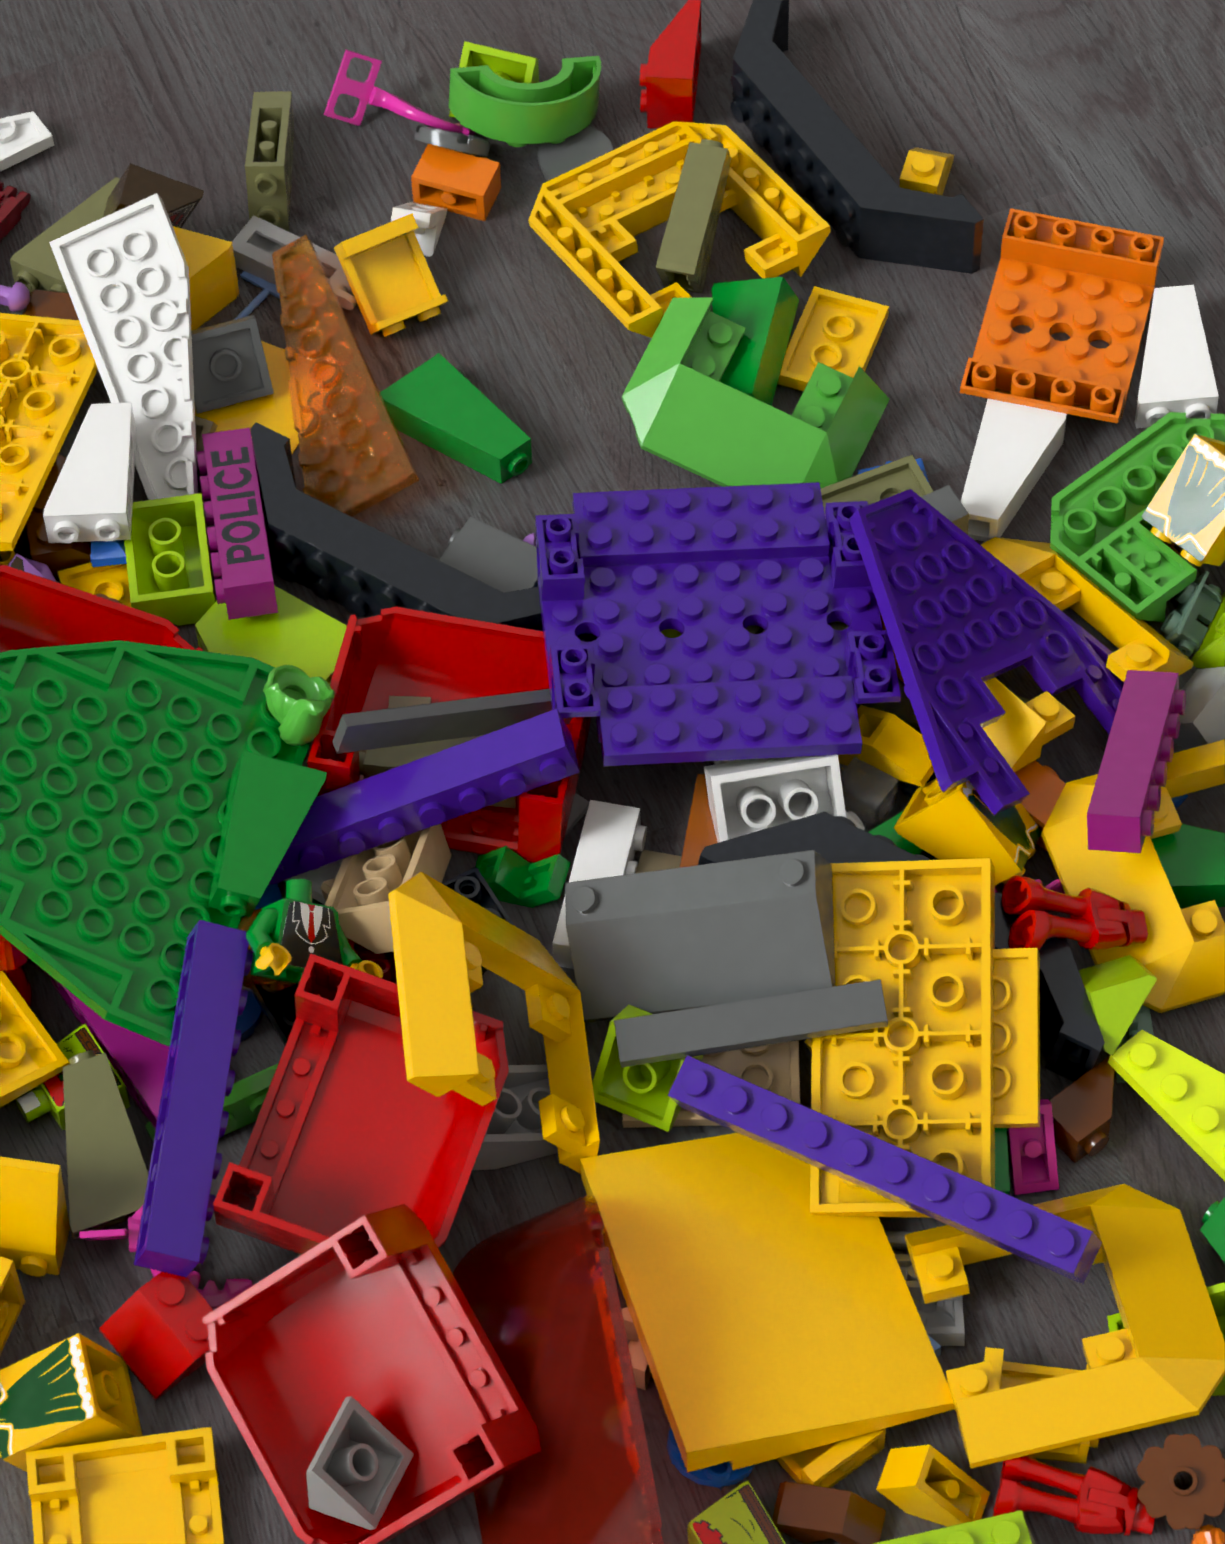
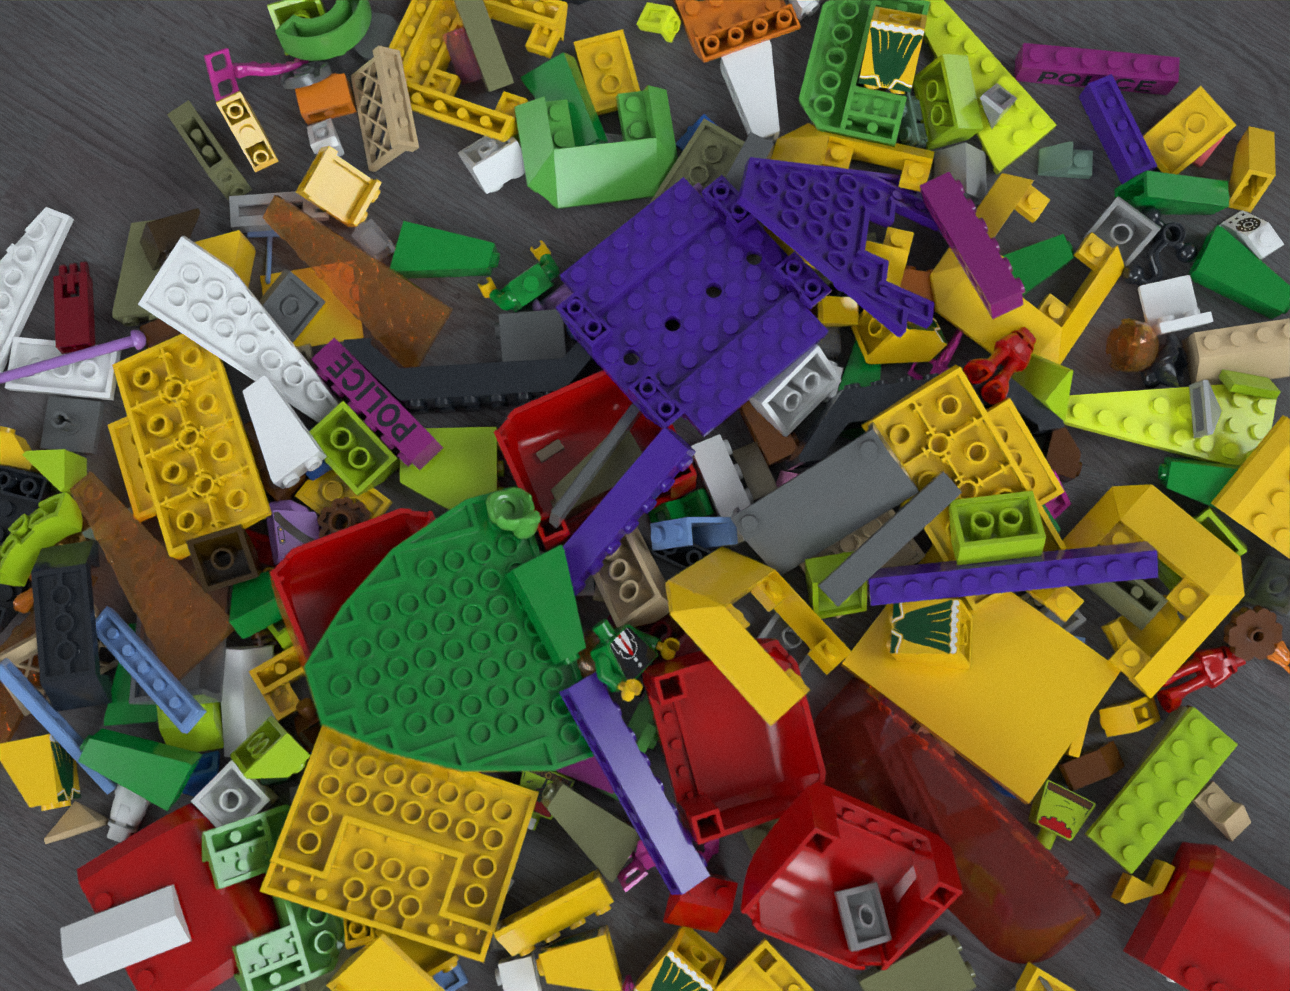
camera: 35 degrees left, 25 degrees up
(334, 158) = (247, 130): none -> yellow slope
(385, 356) = (373, 240): none -> clear brick
(518, 223) = (394, 108): none -> tan fence
(518, 876) = (705, 531): none -> medium blue panel
(523, 499) = (527, 285): none -> green torso
(603, 358) = (493, 162): none -> white slope
(656, 222) = (462, 56): none -> clear pink slope
(729, 1189) = (931, 633): none -> slope
(902, 1097) = (996, 528): none -> lime slope
(949, 326) = (660, 20): none -> neon yellow bracket
(1037, 1317) = (1131, 599): none -> olive brick

